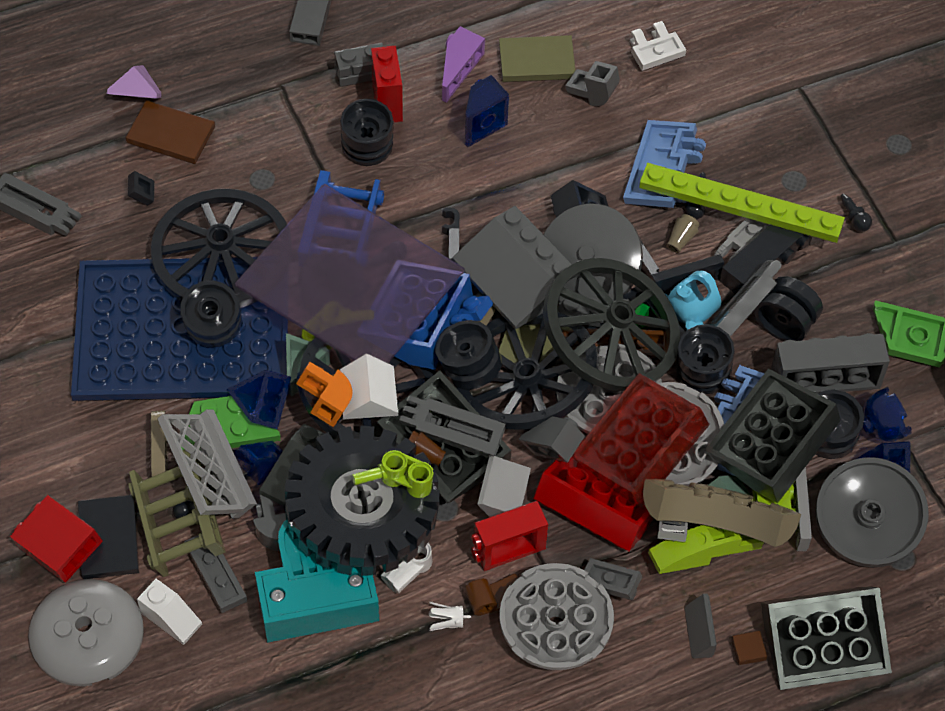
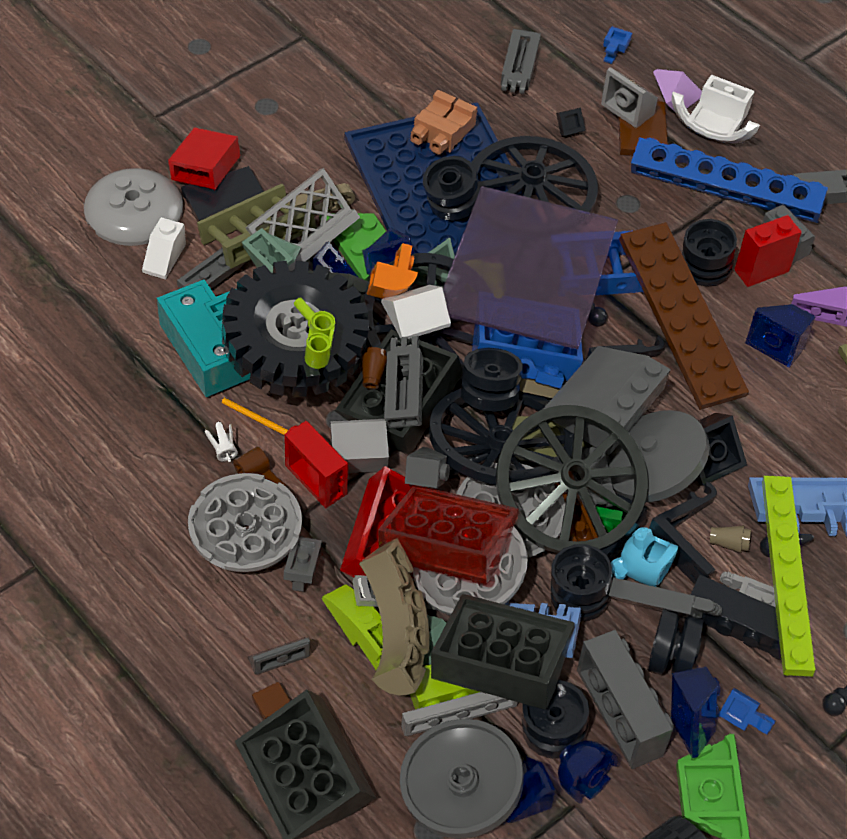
camera: 70 degrees right, 5 degrees down
(43, 110) = (616, 41): none -> blue plate
(106, 297) = (443, 122): none -> nougat hips
(142, 126) = (627, 98): none -> light grey slope
(183, 59) = (719, 111): none -> white piece
(224, 144) = (735, 189): none -> blue brick
(241, 501) = (267, 248): none -> sand green slope
(407, 572) = (262, 401): white piece -> none
(423, 577) = (254, 416): none -> light orange axle
(431, 179) = (683, 316): none -> reddish brown plate
(853, 286) = (742, 711): none -> blue plate
(856, 313) = (694, 707): none -> clear blue slope

